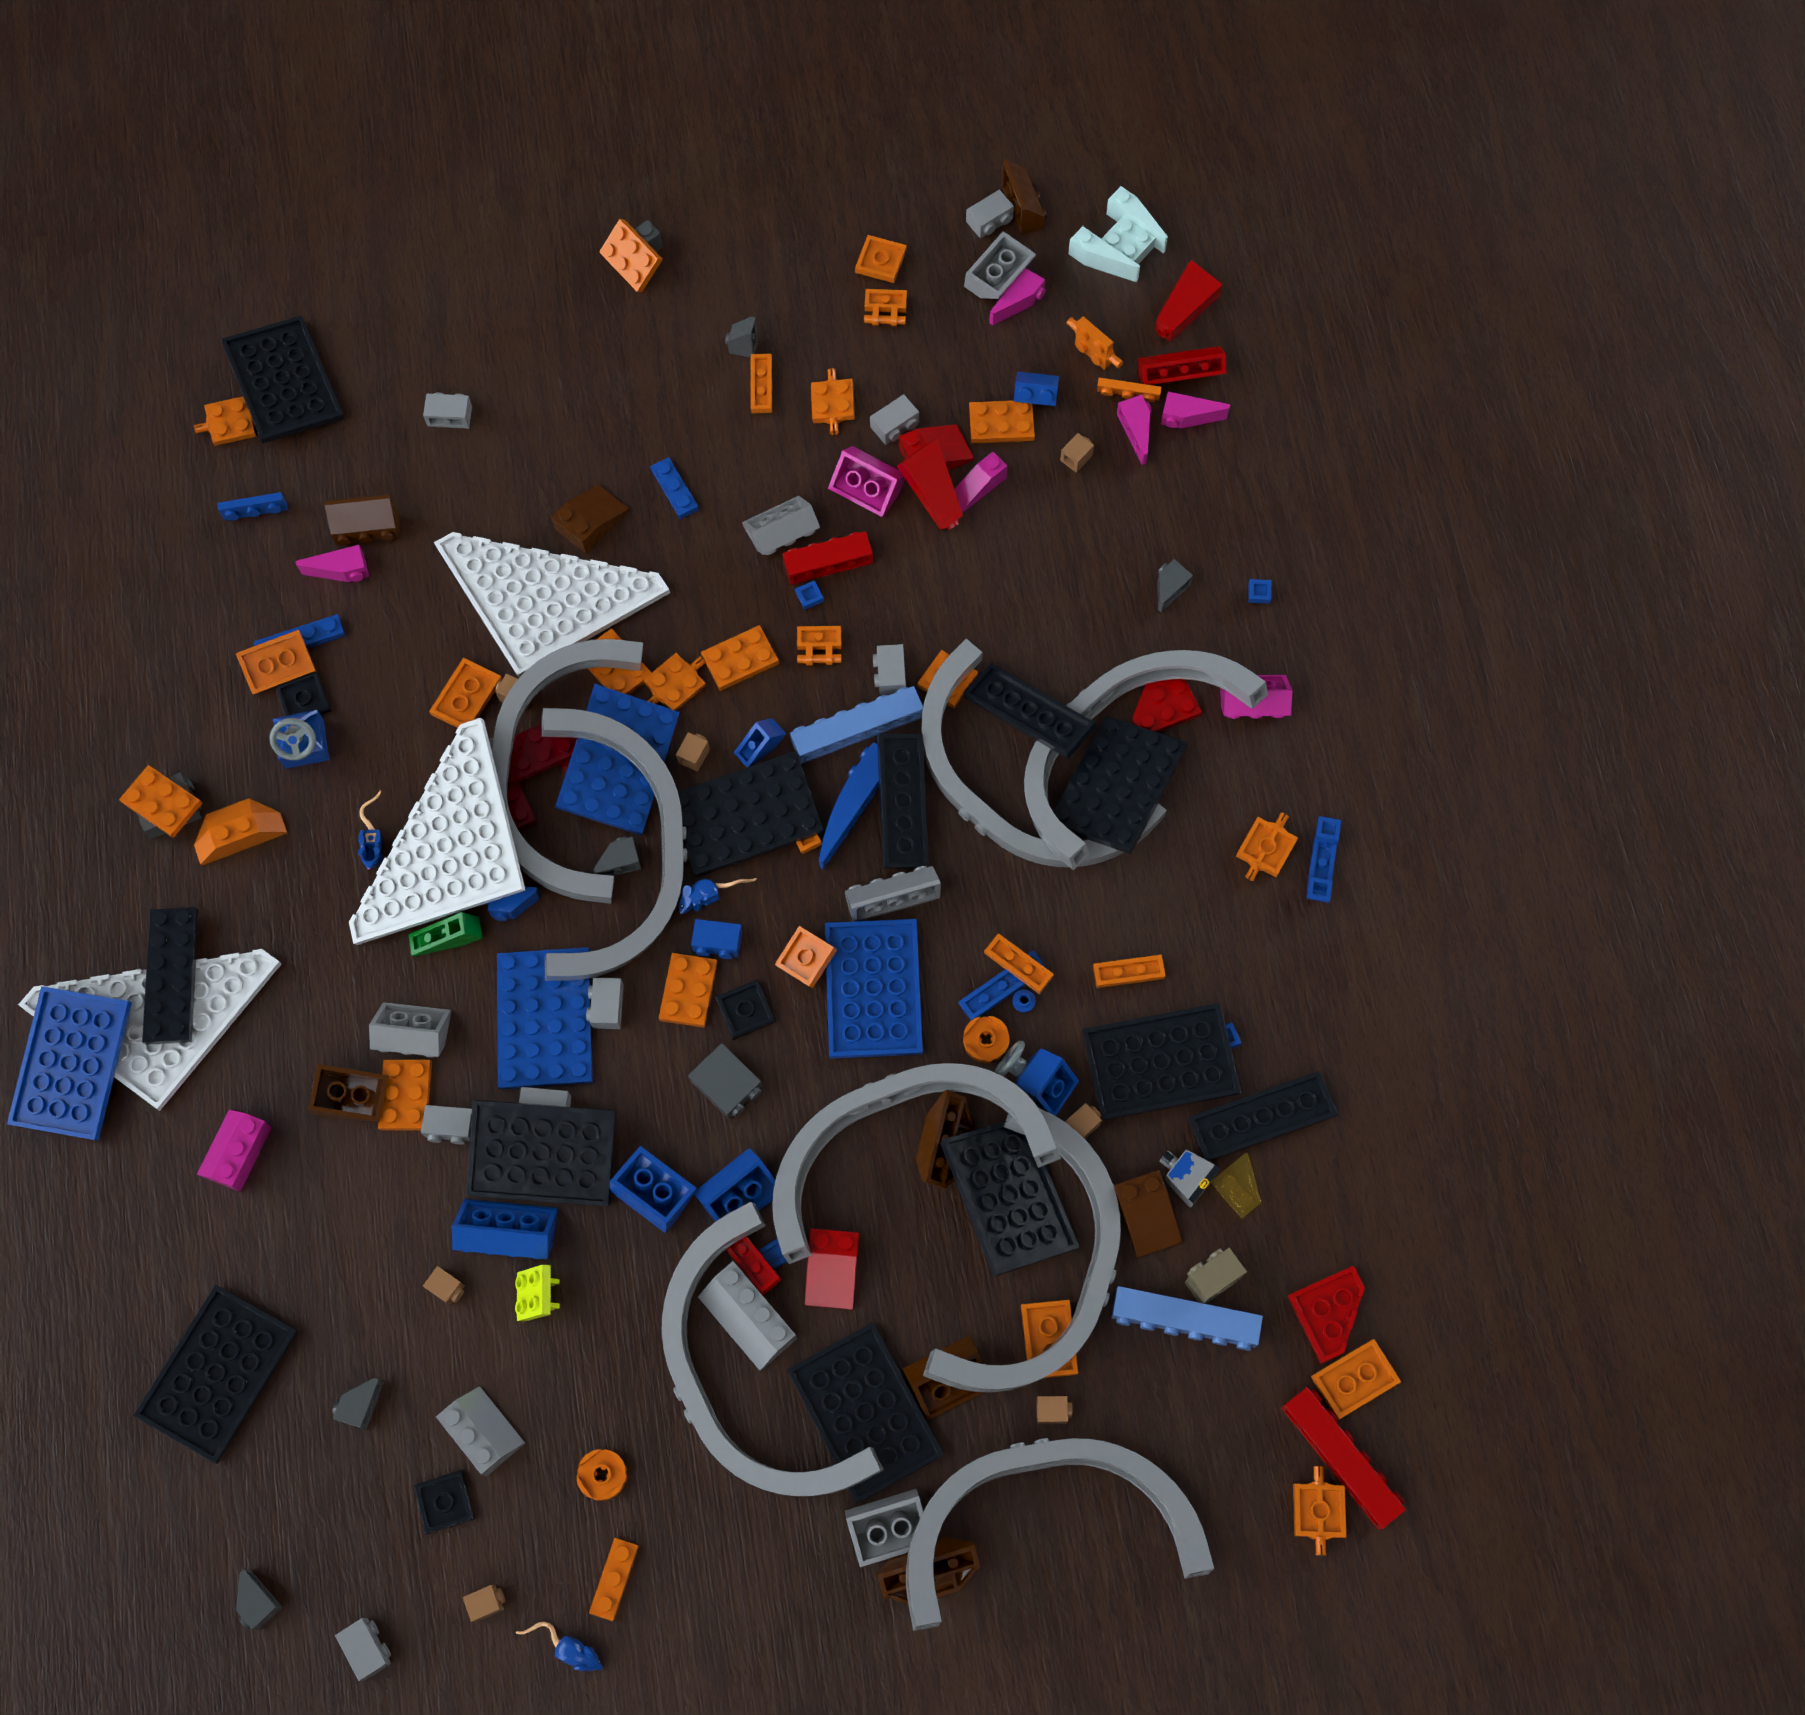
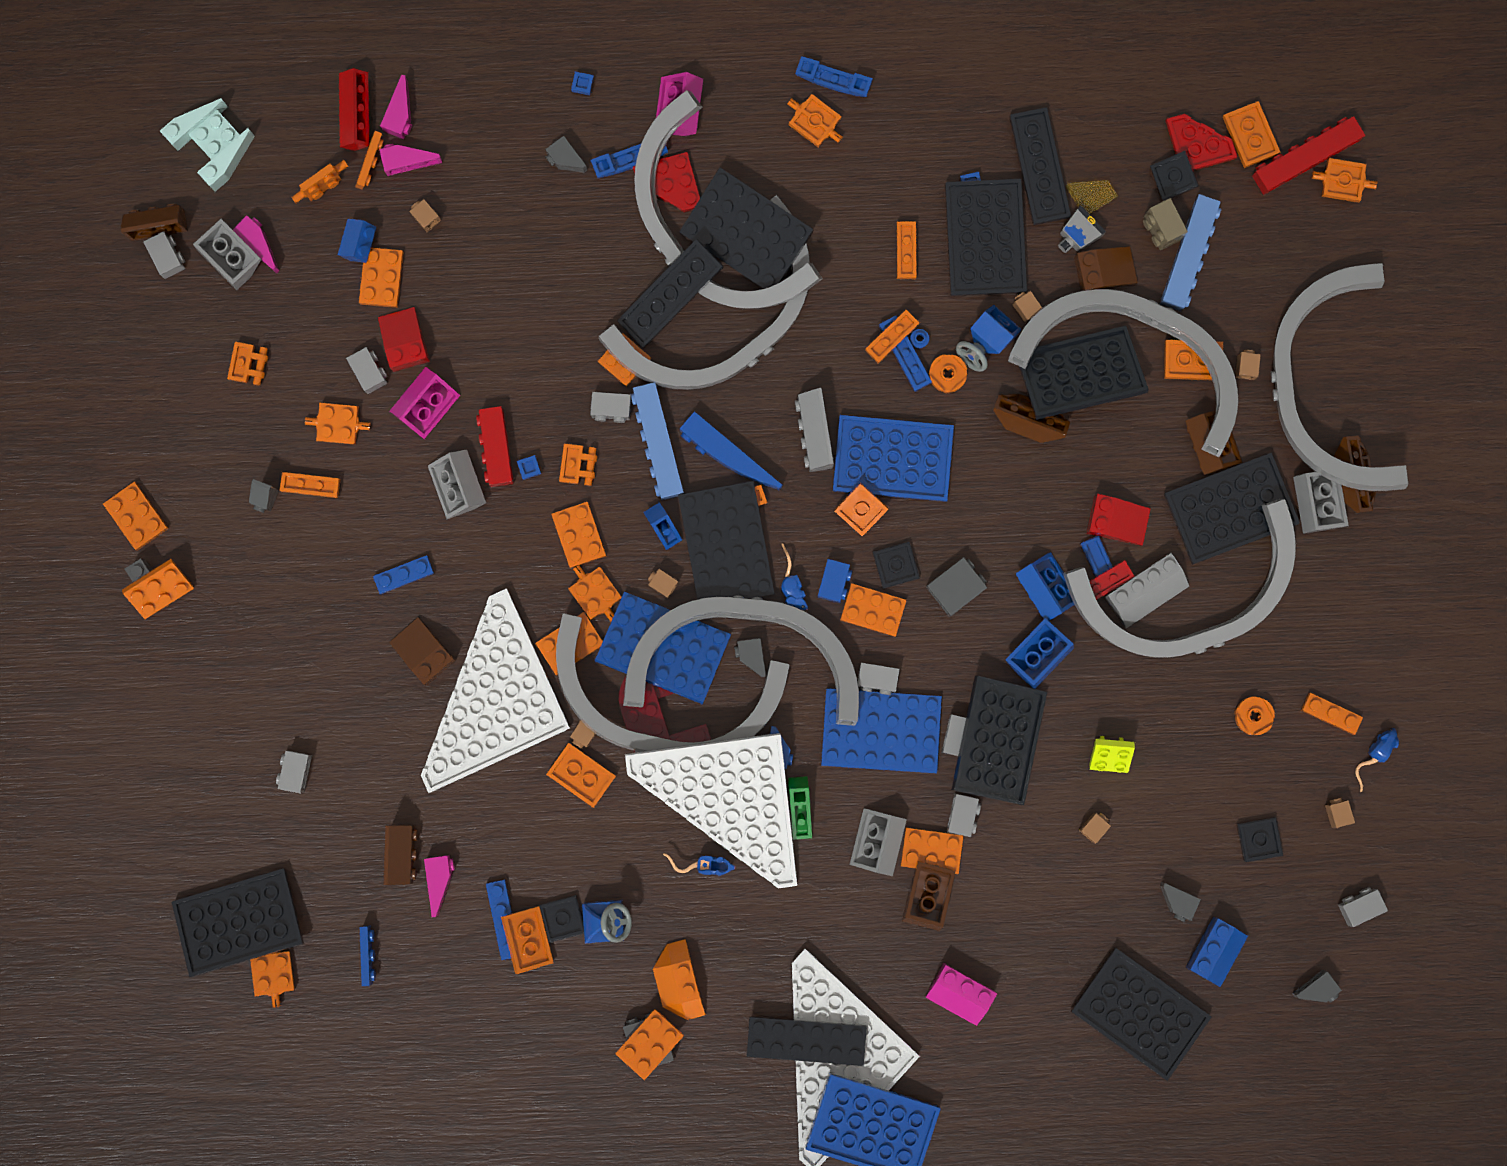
camera: 85 degrees left, 15 degrees up
(296, 1462) = (1216, 951): none -> blue slope
(480, 1430) = (1211, 806): light grey slope -> none
(504, 1229) = (1054, 775): blue slope -> none
(708, 229) = (135, 516): none -> orange plate
(879, 1096) = (987, 467): light grey arch -> none
(880, 259) = (195, 361): orange plate -> none
(902, 801) = (736, 411): black plate -> none
(932, 484) = (442, 344): red slope -> none
(980, 481) = (443, 307): dark pink slope -> none
(1173, 637) = (617, 162): none -> blue slope
(1188, 300) = (282, 90): red slope -> none
(1281, 1285) = (1174, 176): none -> black tile

